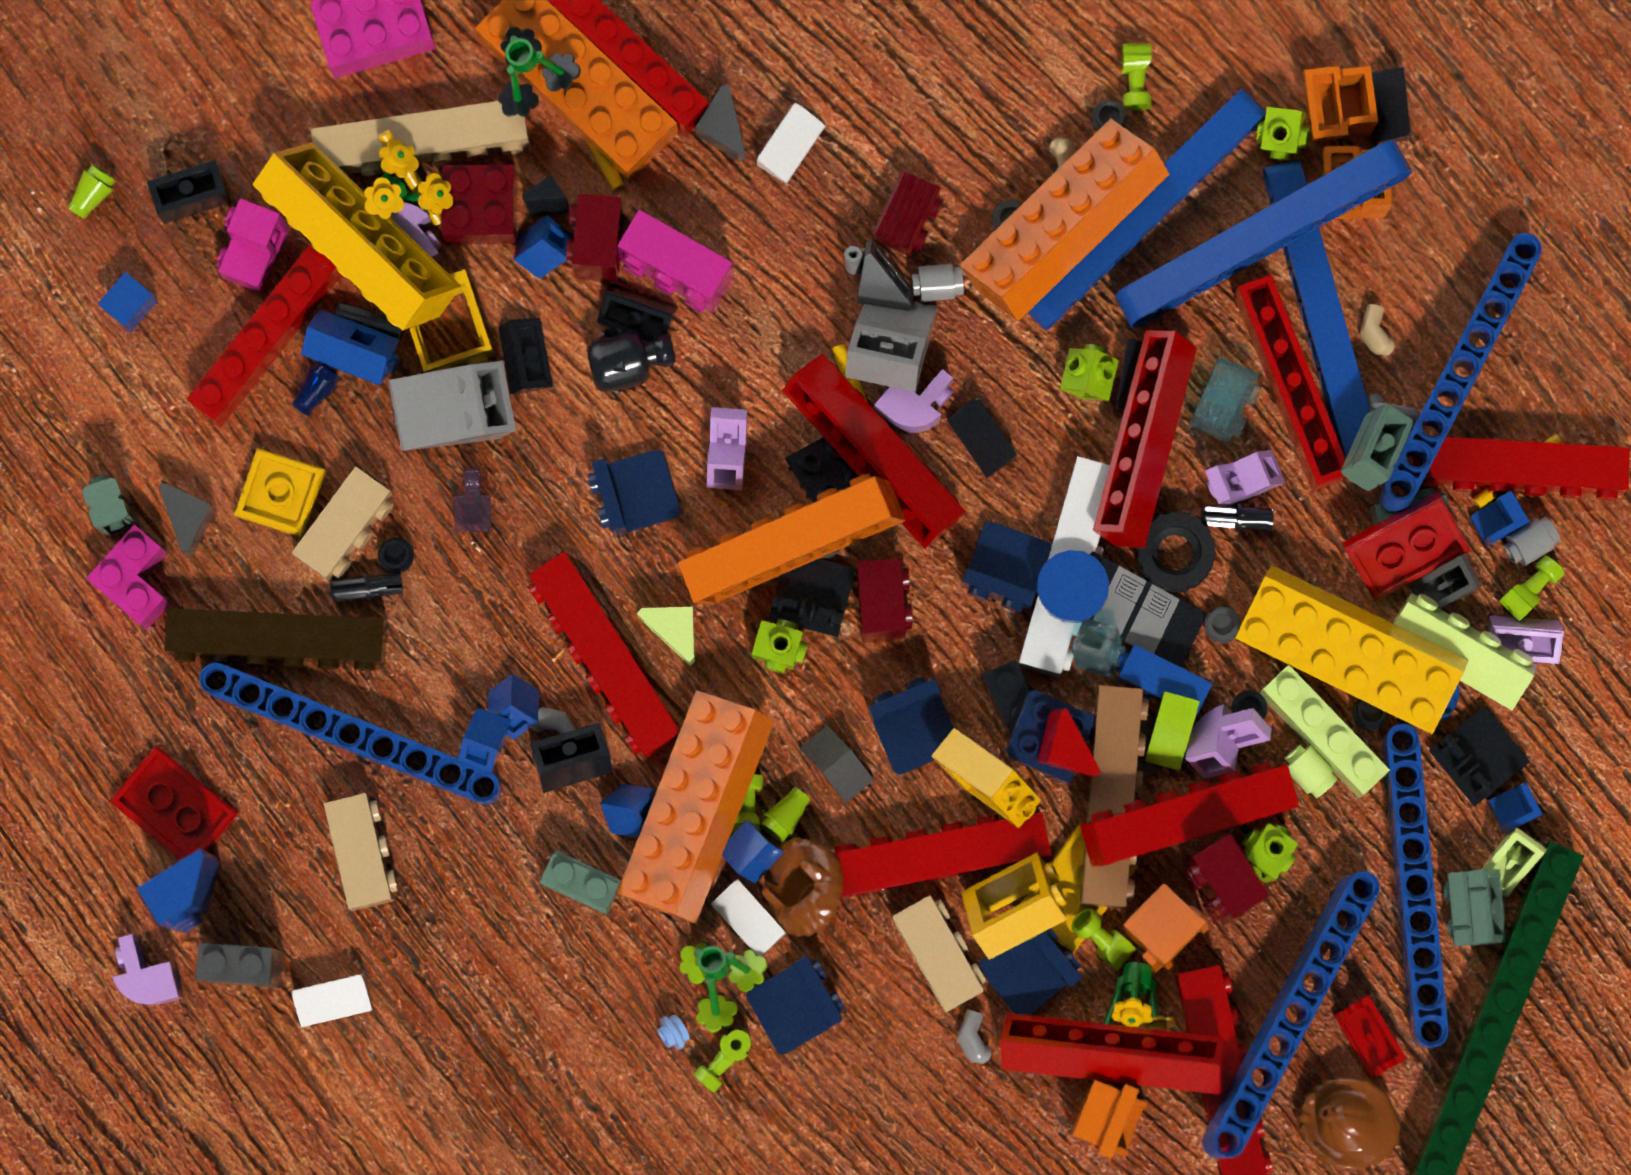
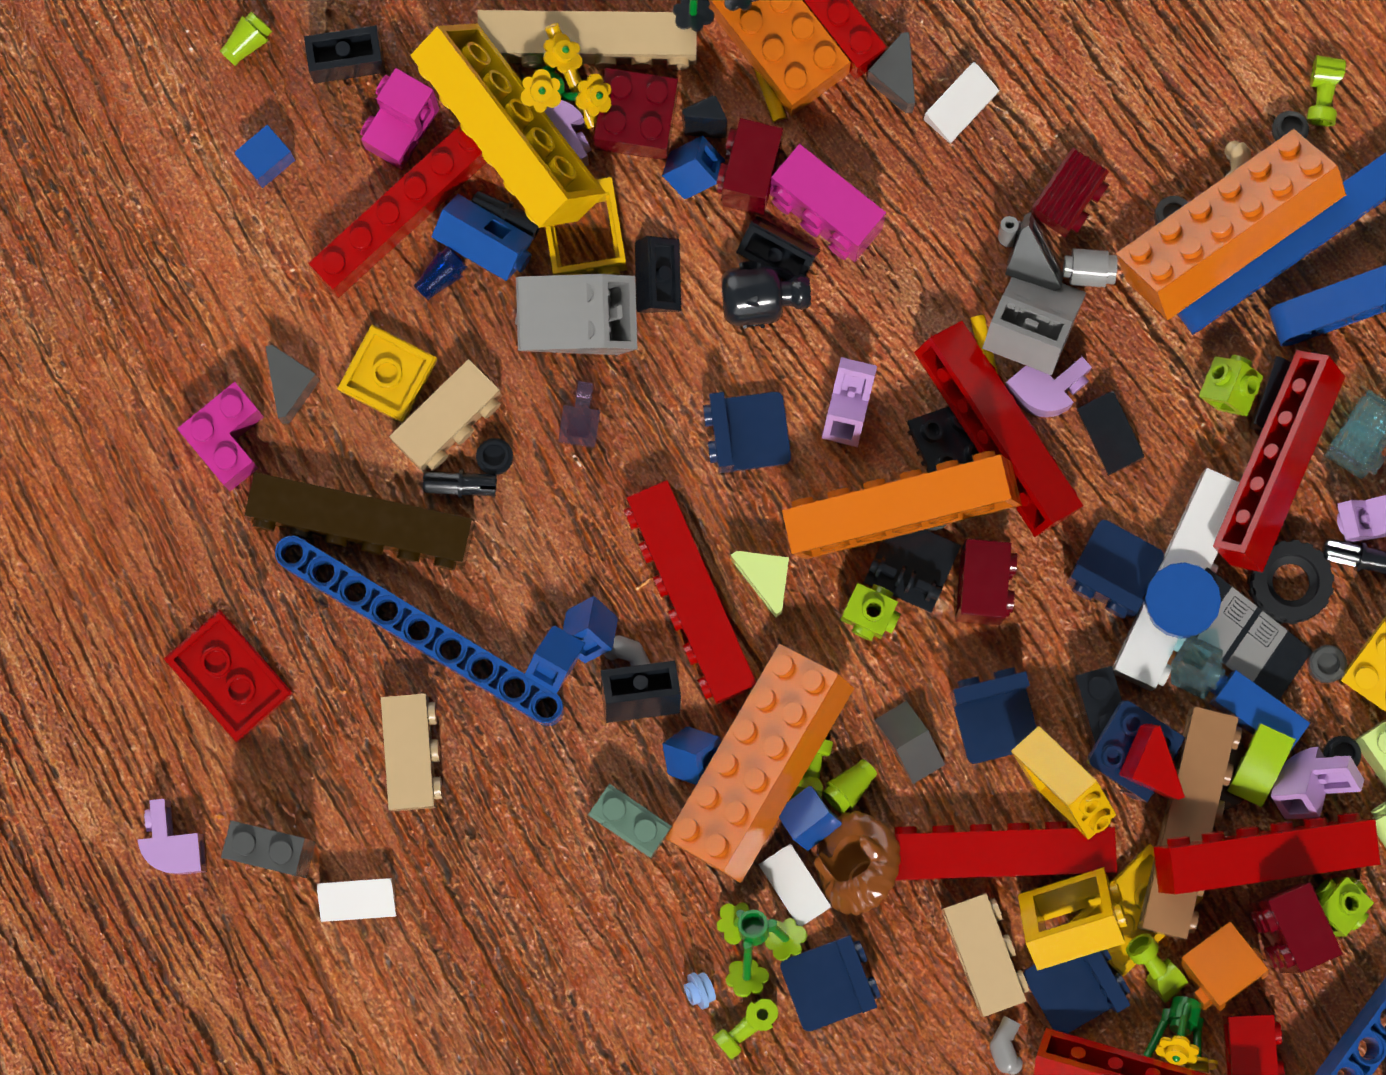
camera: 10 degrees right, 0 degrees up
(109, 506) = (212, 359): sand green brick -> none
(182, 891) = (222, 764): blue slope -> none

